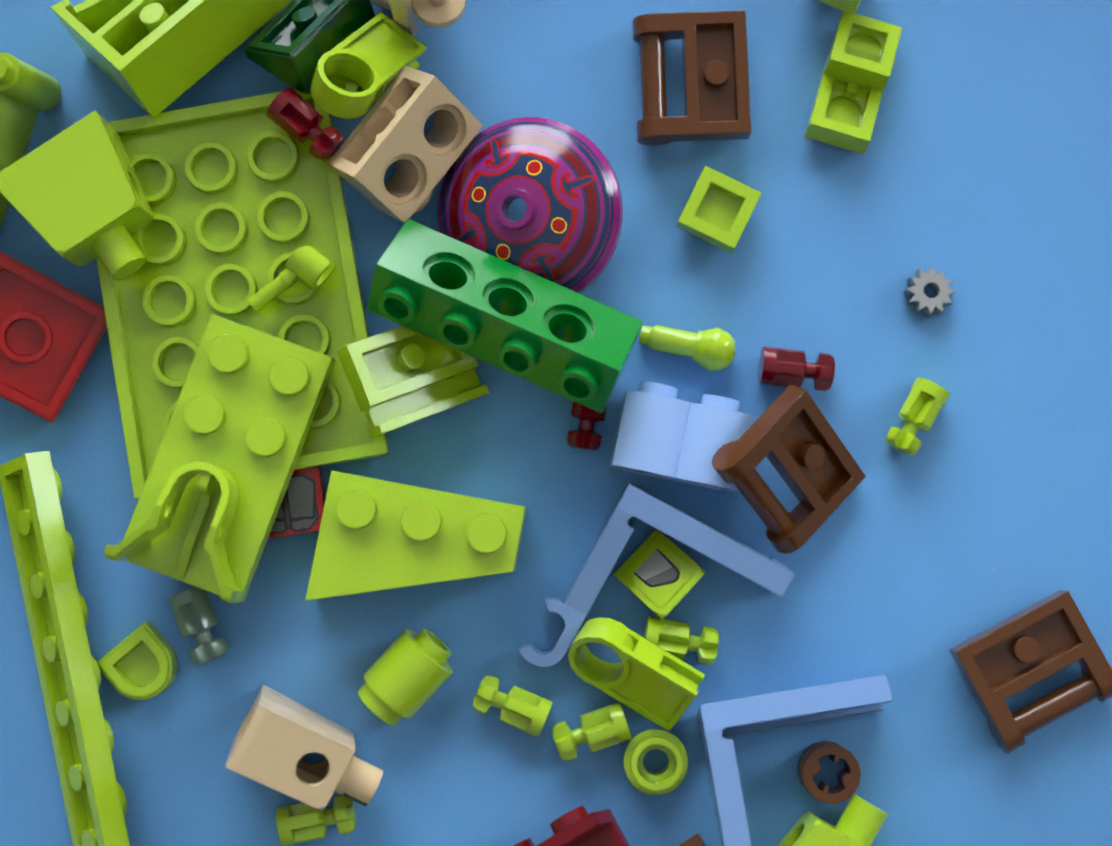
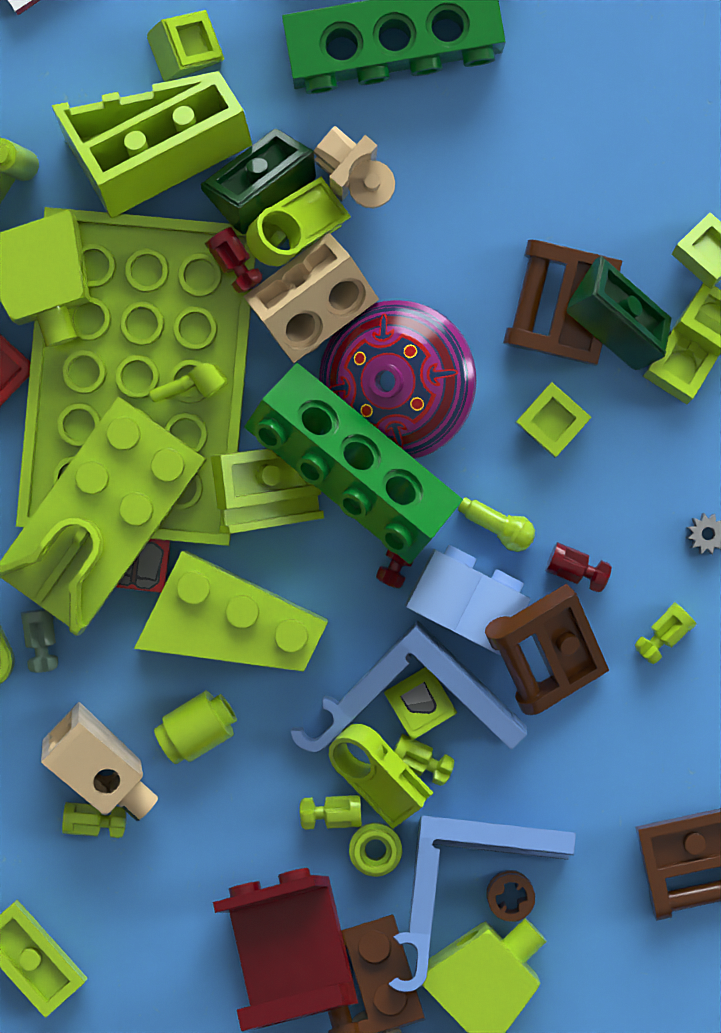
camera: 15 degrees right, 5 degrees up
(518, 707) = (277, 777): lime piece -> none
(761, 71) = (620, 315): none -> dark green slope

